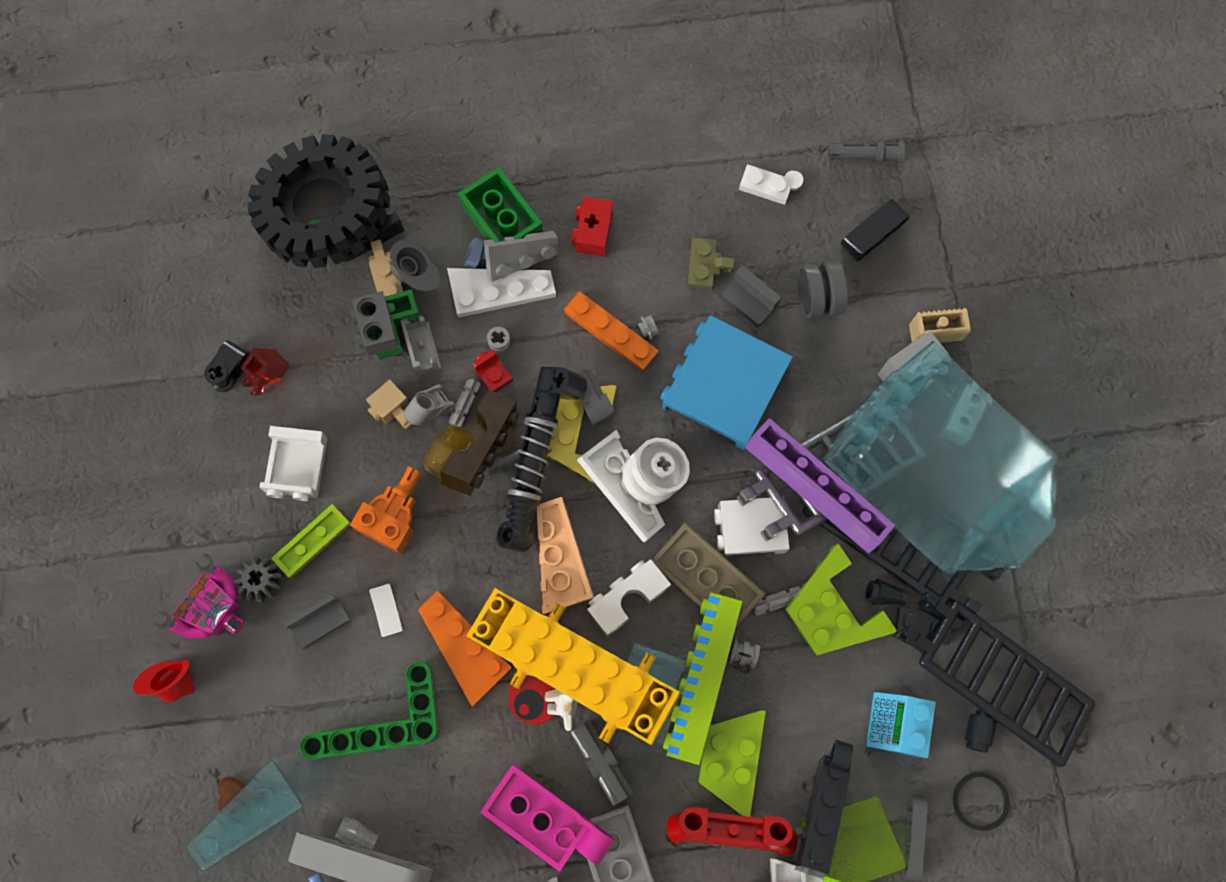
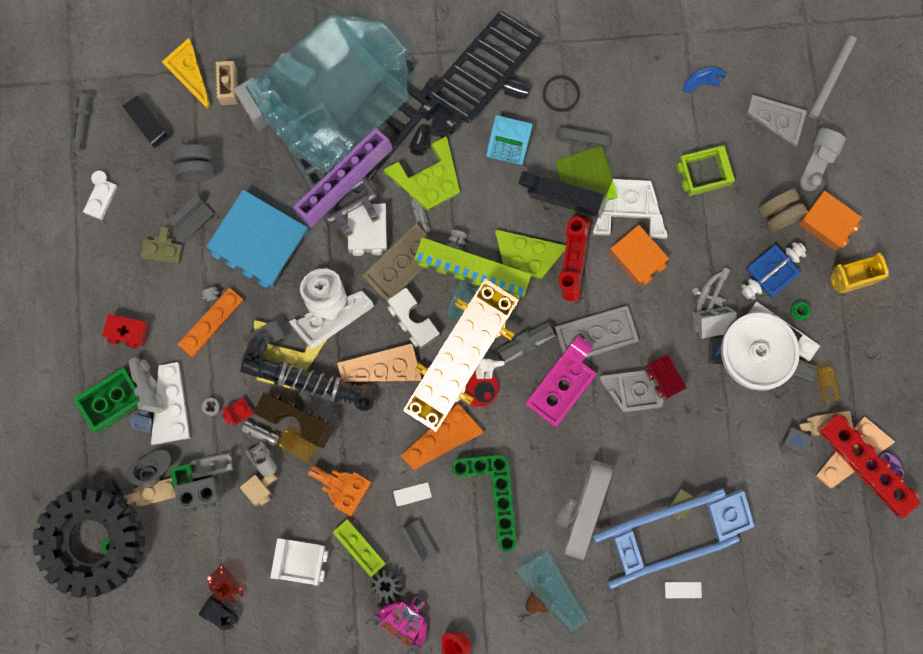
camera: 85 degrees left, 5 degrees up
(954, 274) = (185, 68): none -> yellow wing

